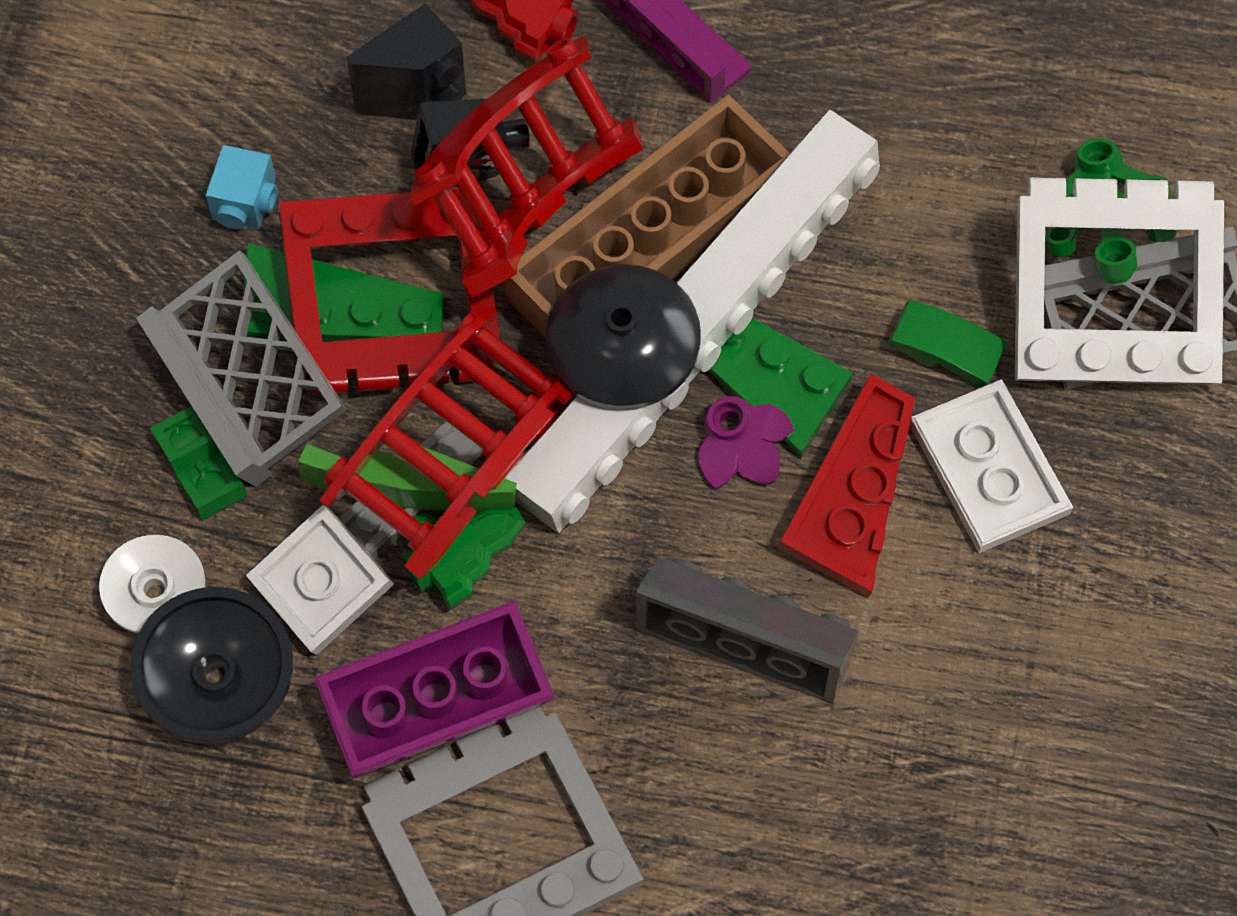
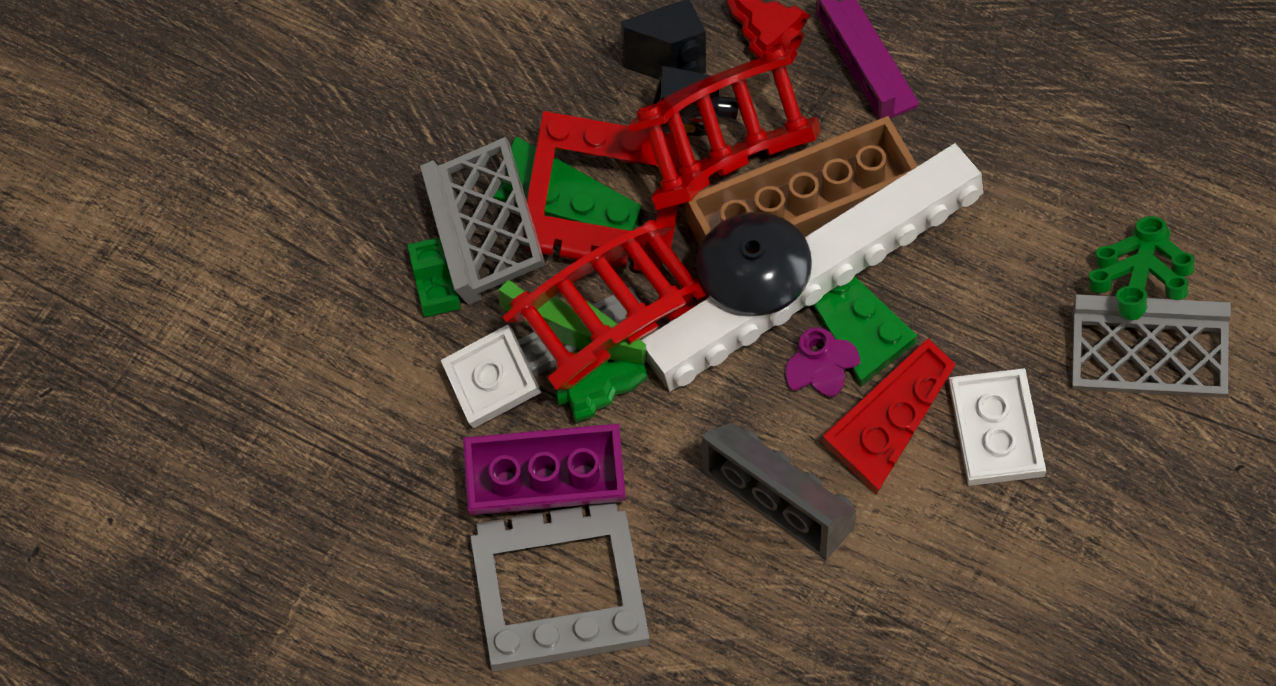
camera: 20 degrees right, 5 degrees down
(141, 565) = (371, 336): white dish -> none
(204, 633) = (393, 392): black dish -> none
(242, 188) = (523, 97): medium azure brick -> none
(948, 340) = (995, 331): green slope -> none
(1120, 354) = (1115, 371): white hinge -> none

